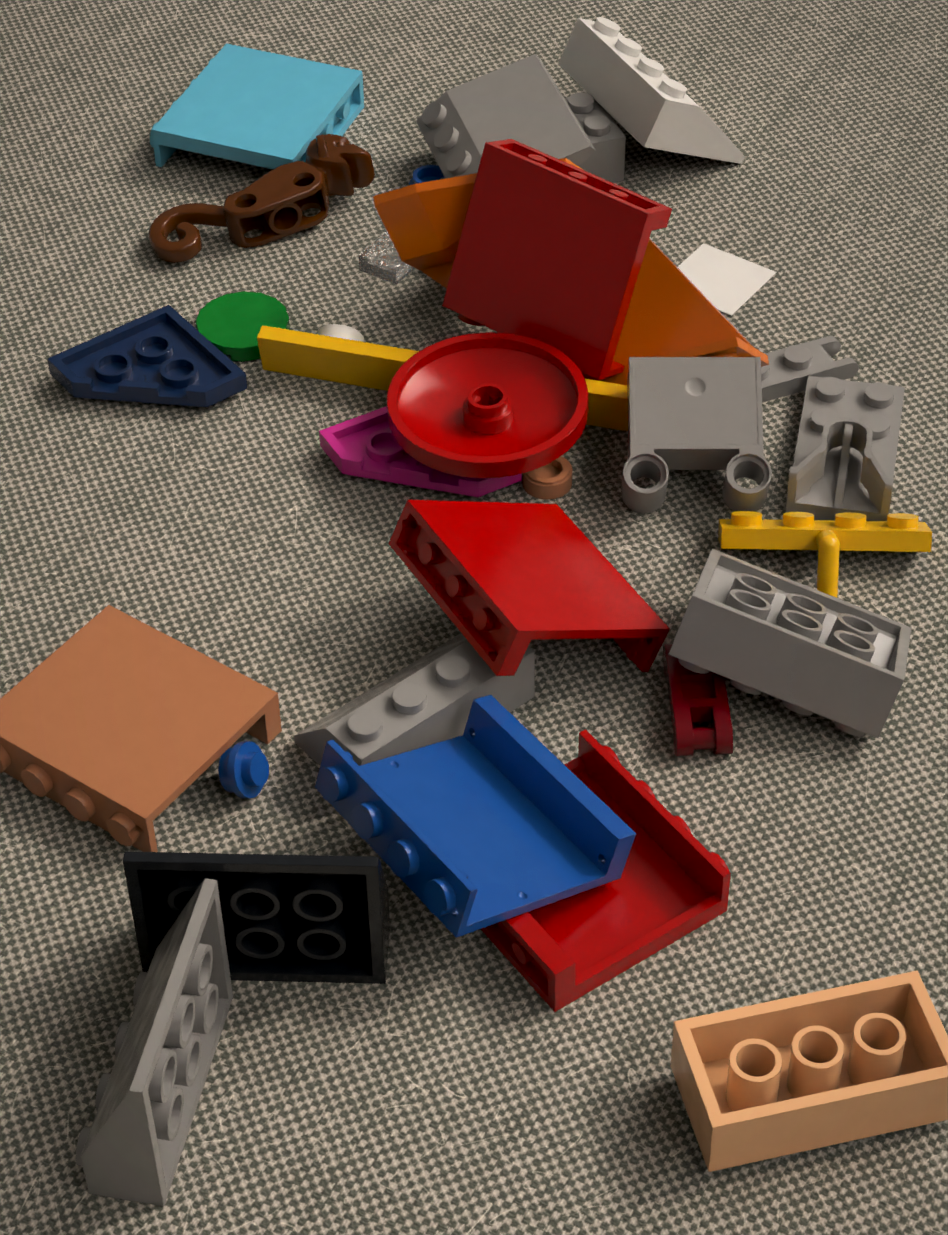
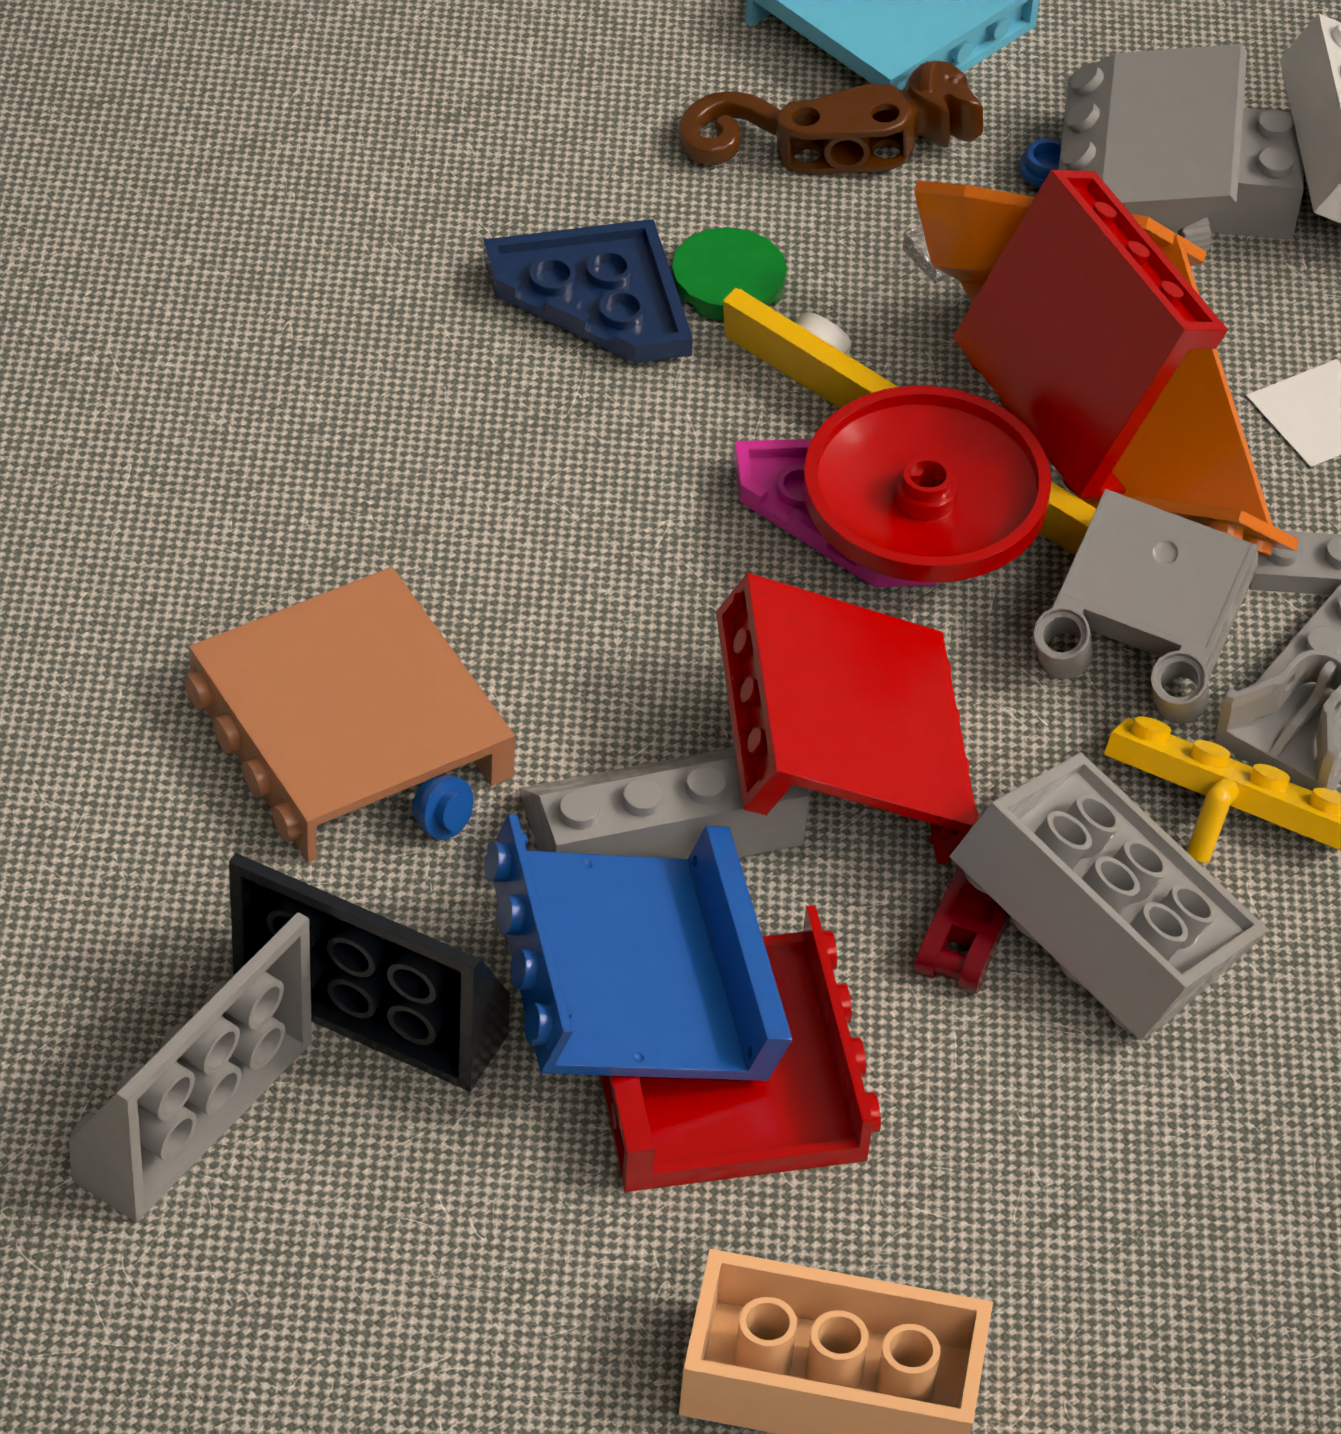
camera: 20 degrees right, 5 degrees up
(550, 480) = (969, 598): nougat tile -> none

